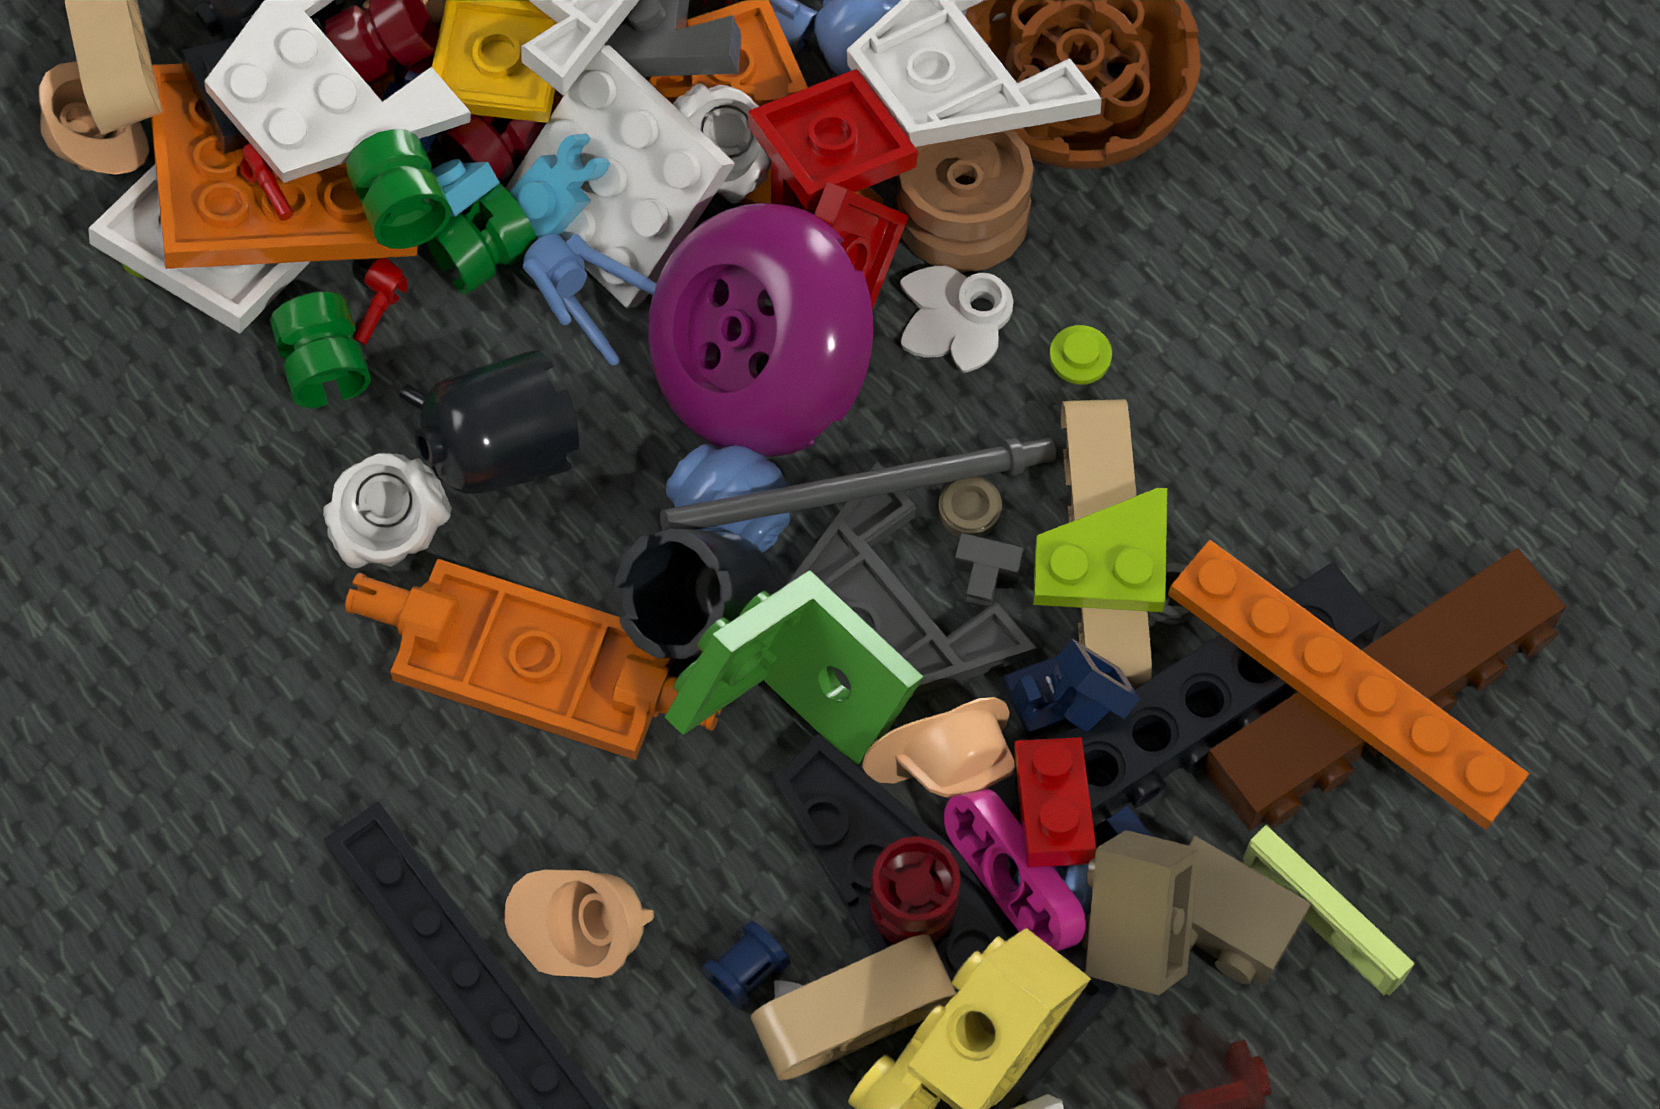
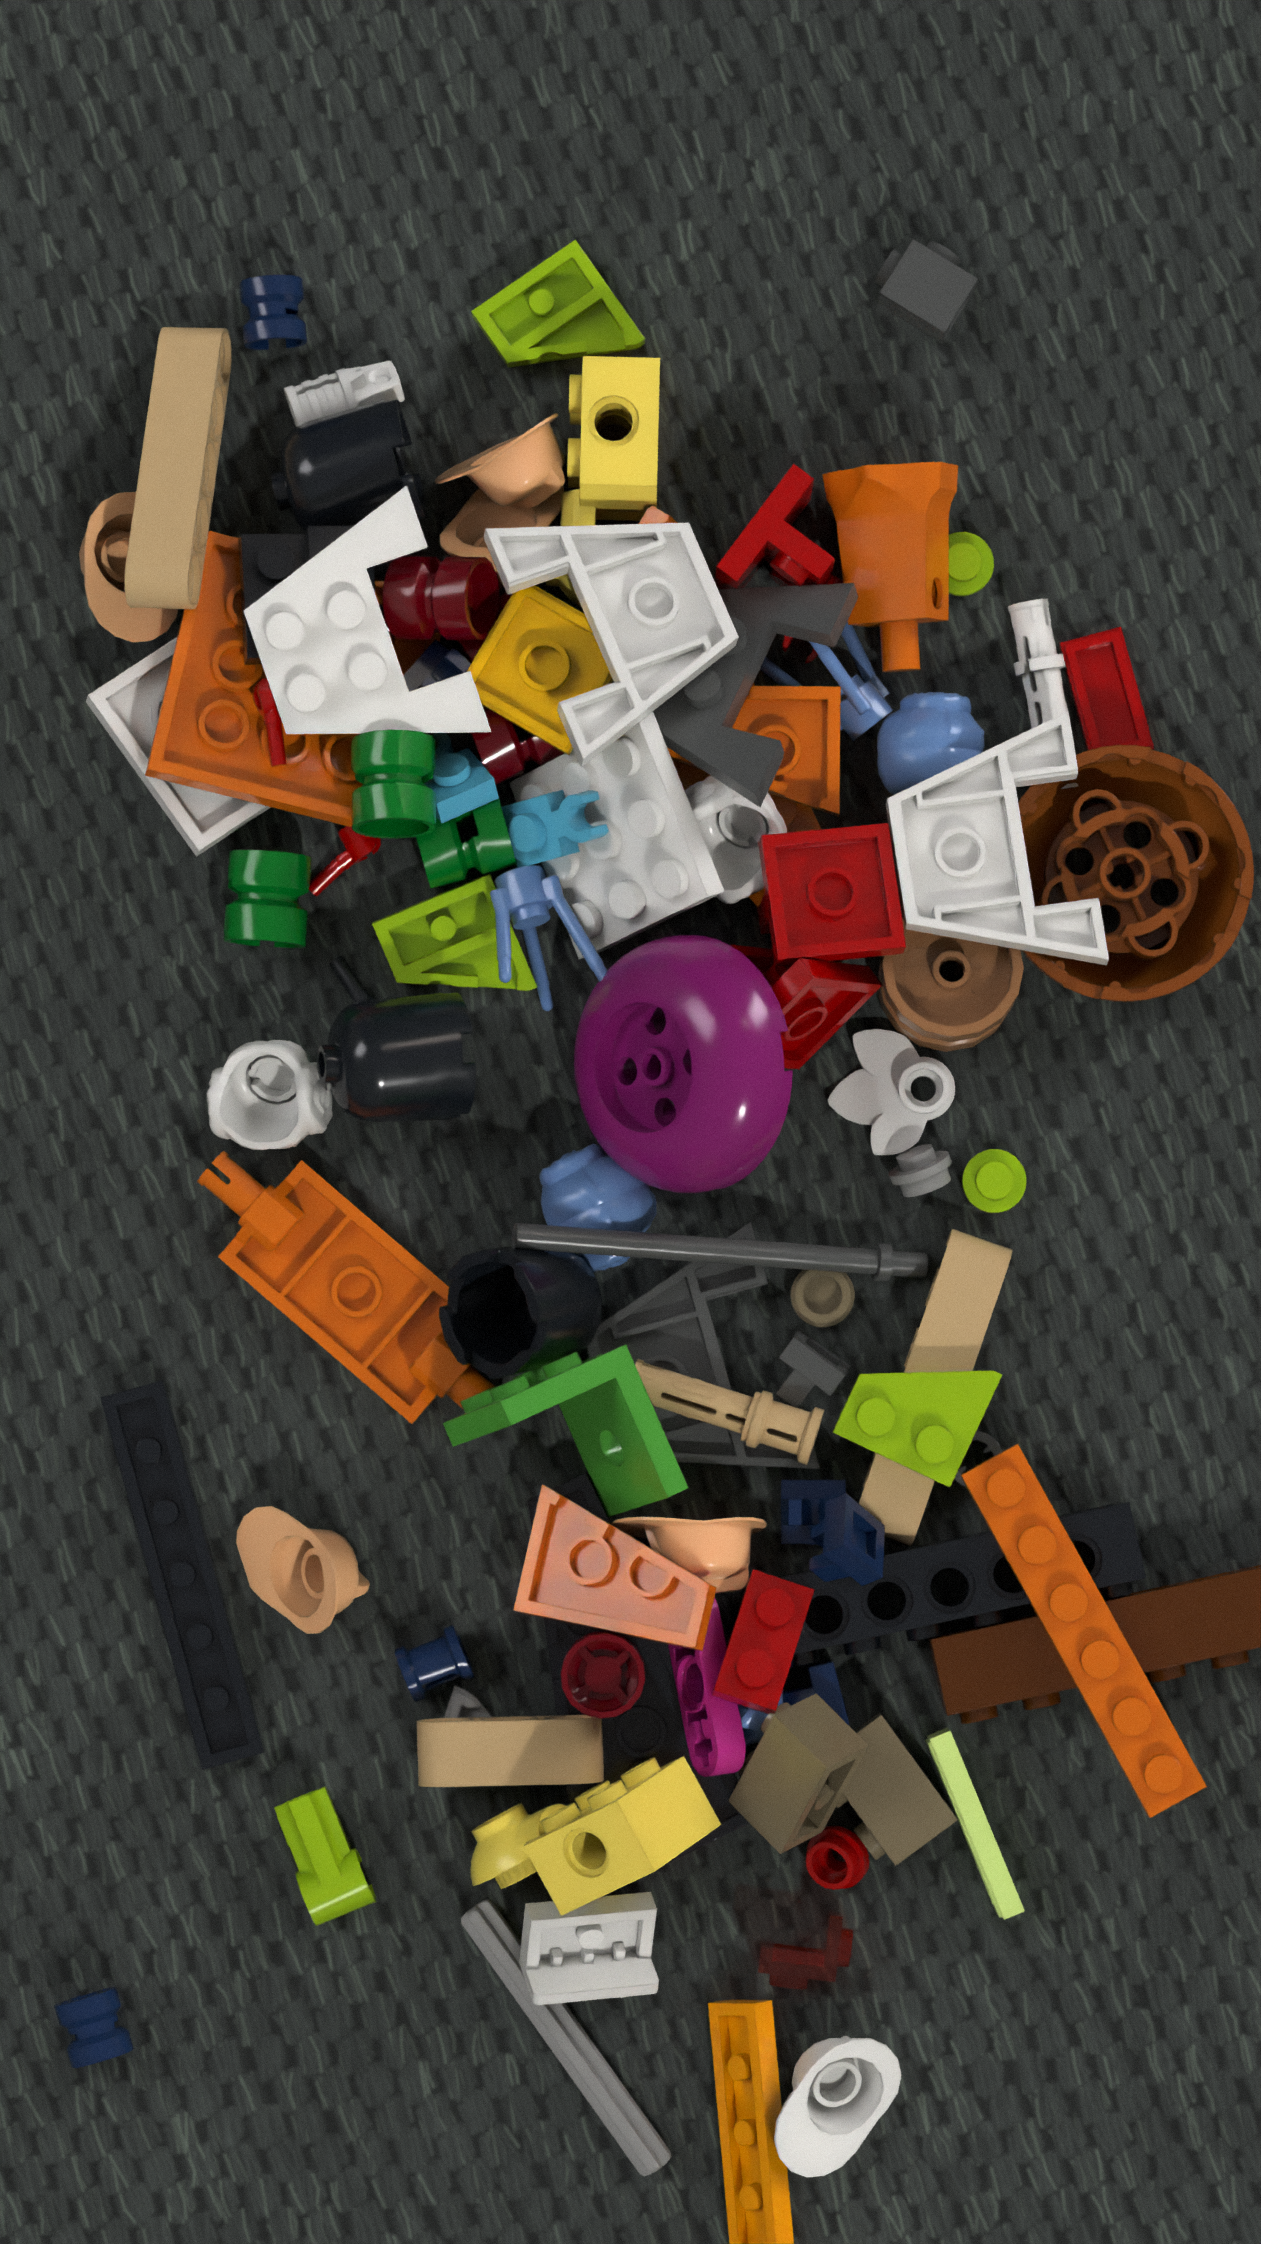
camera: 25 degrees right, 20 degrees up
(504, 321) = (451, 941): none -> lime wing
(859, 805) = (607, 1580): none -> orange wing
(961, 621) = (755, 1417): none -> tan pin
(1011, 366) = (921, 1170): none -> light grey plate
(1206, 1016) = (826, 1869): none -> red plate

